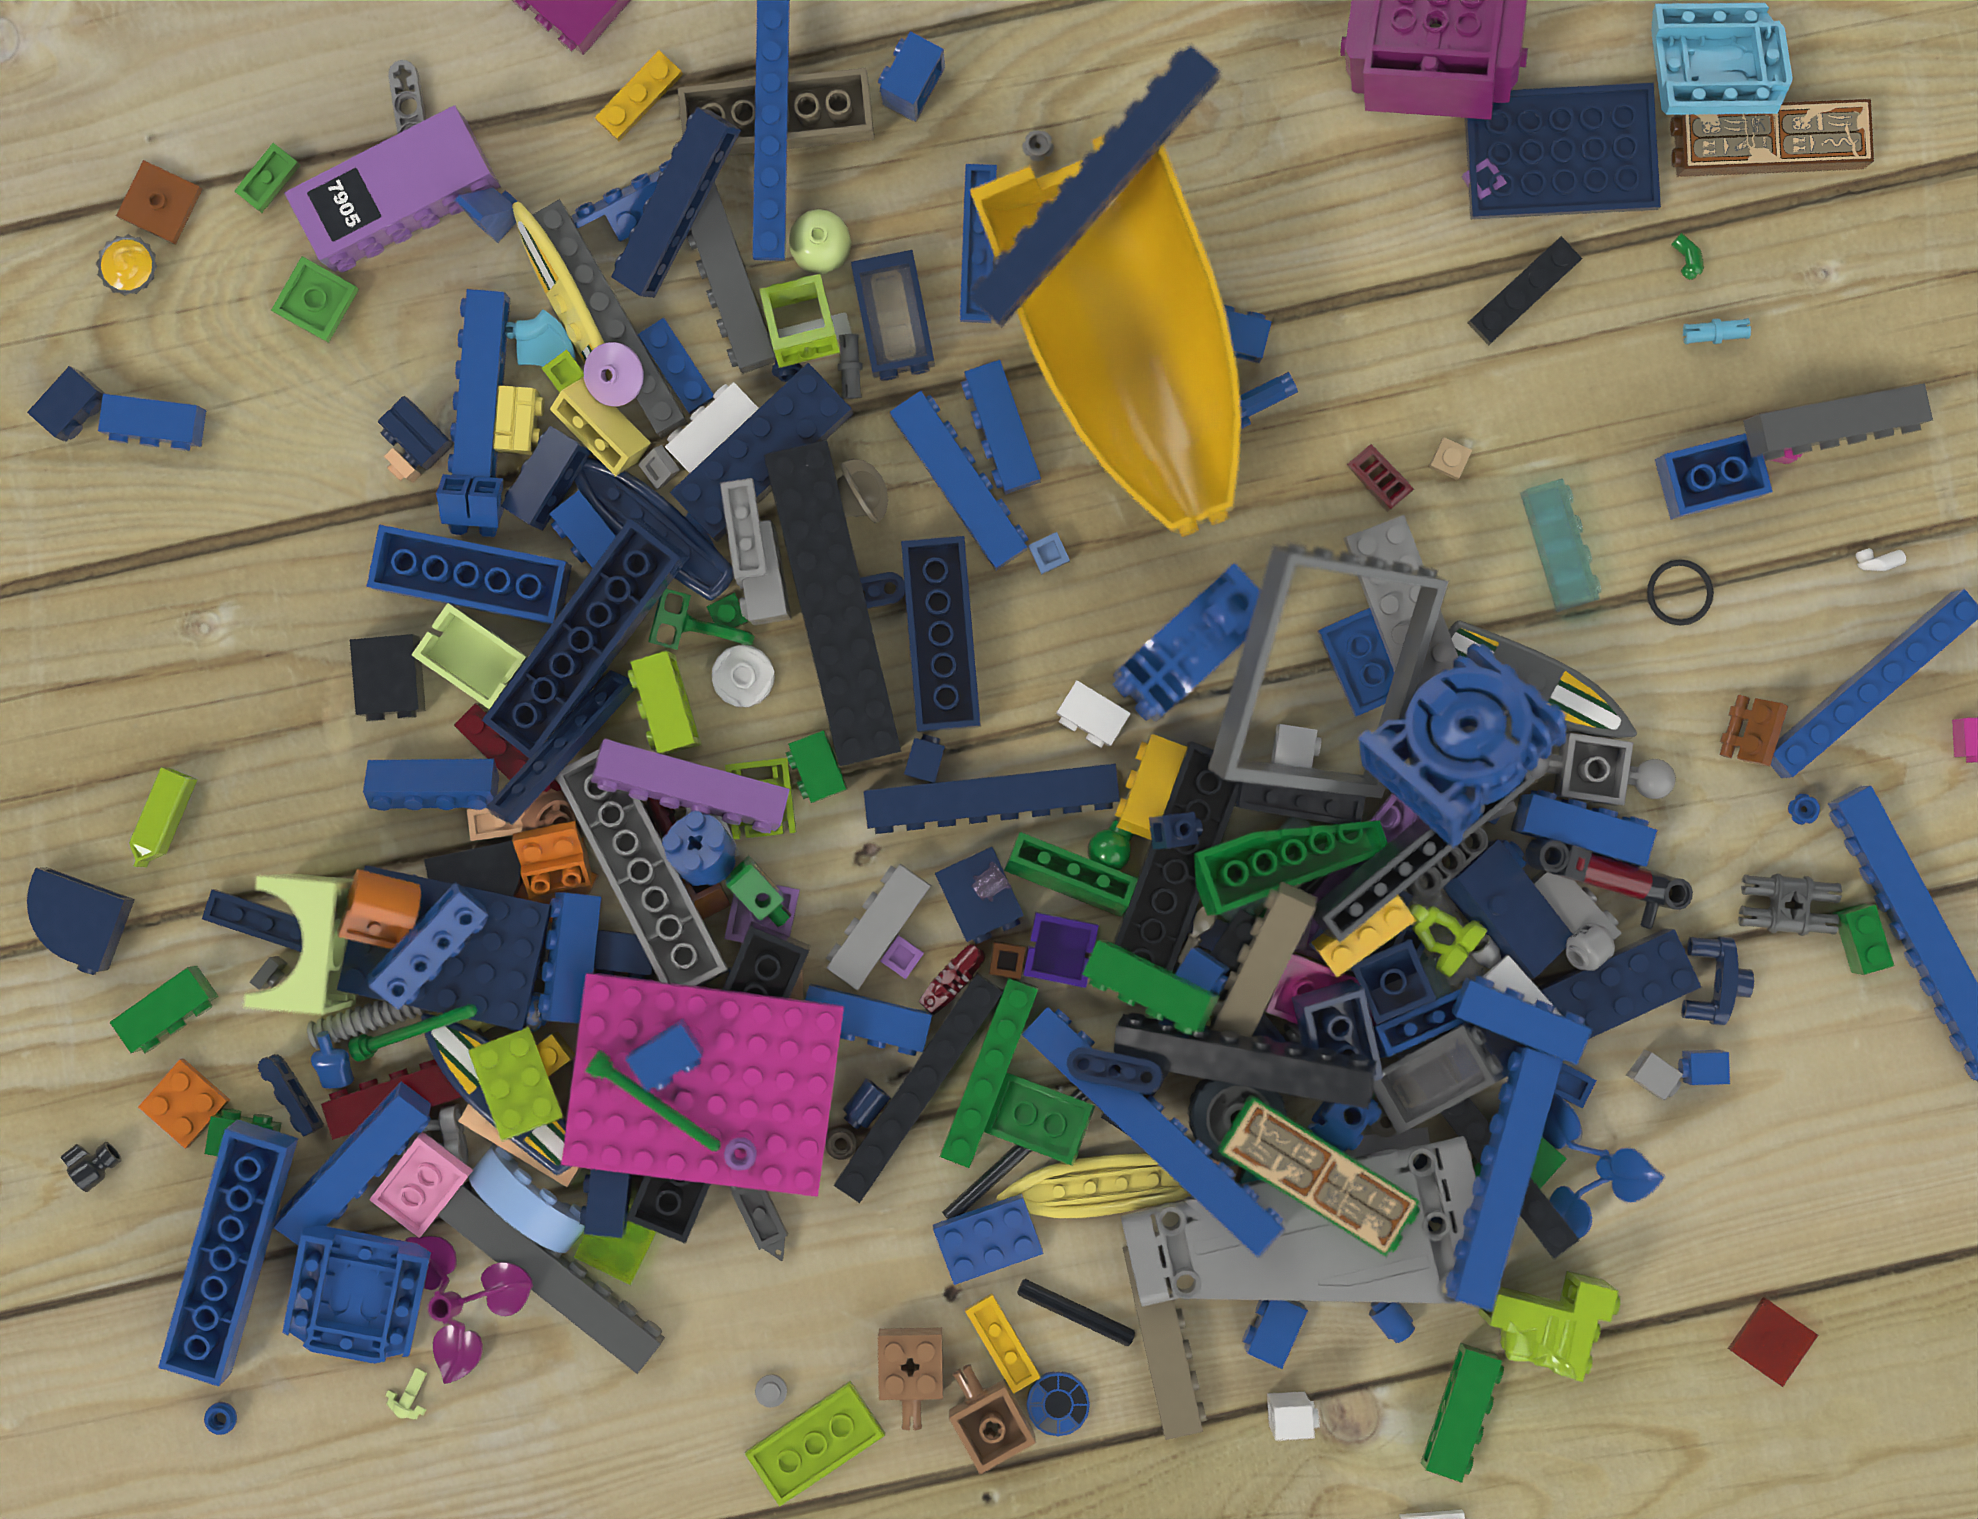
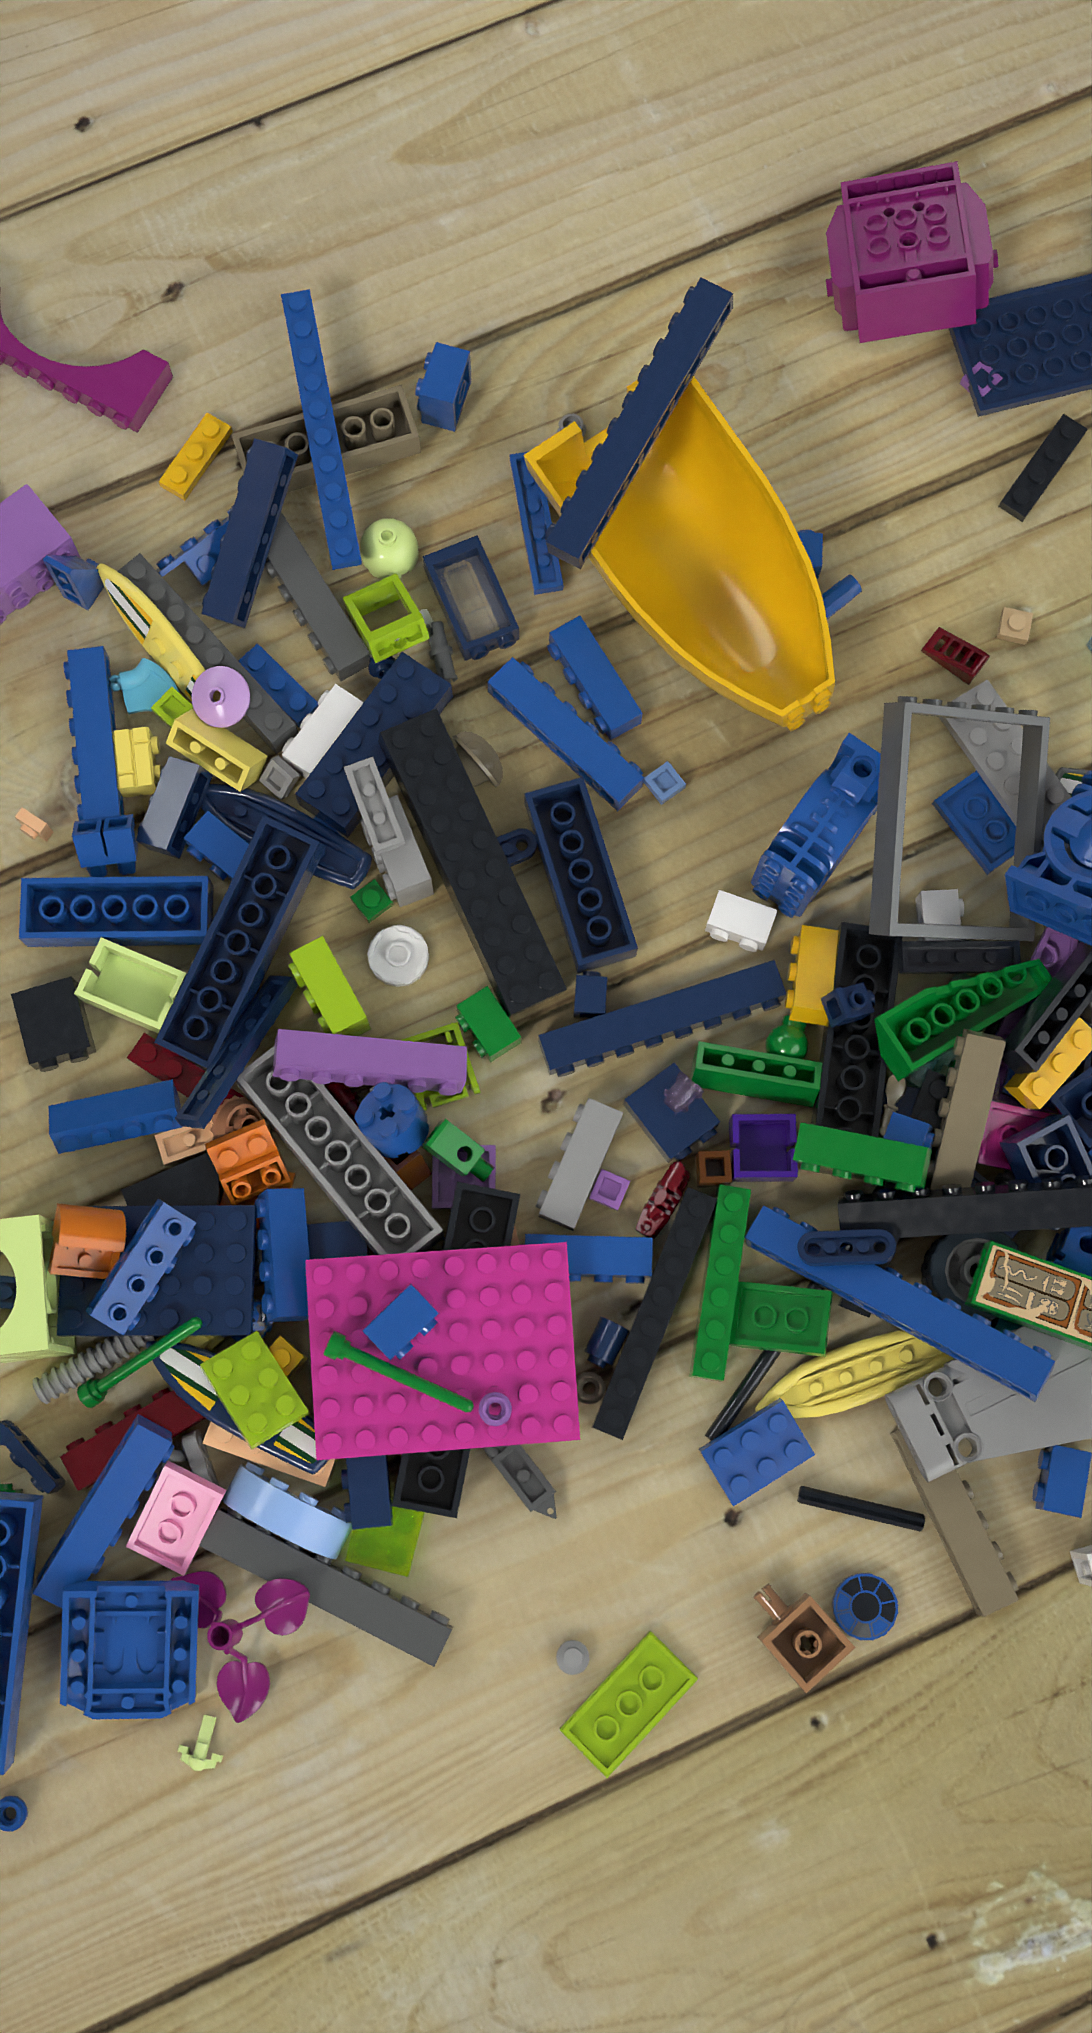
camera: 20 degrees left, 10 degrees down
(331, 1063) = (63, 1414): blue piece -> none
(415, 433) = (40, 792): dark blue brick -> none
(684, 622) = (331, 916): green piece -> none
(906, 1384) = (716, 1618): medium nougat brick -> none
(1002, 1343) = (795, 1555): yellow plate -> none

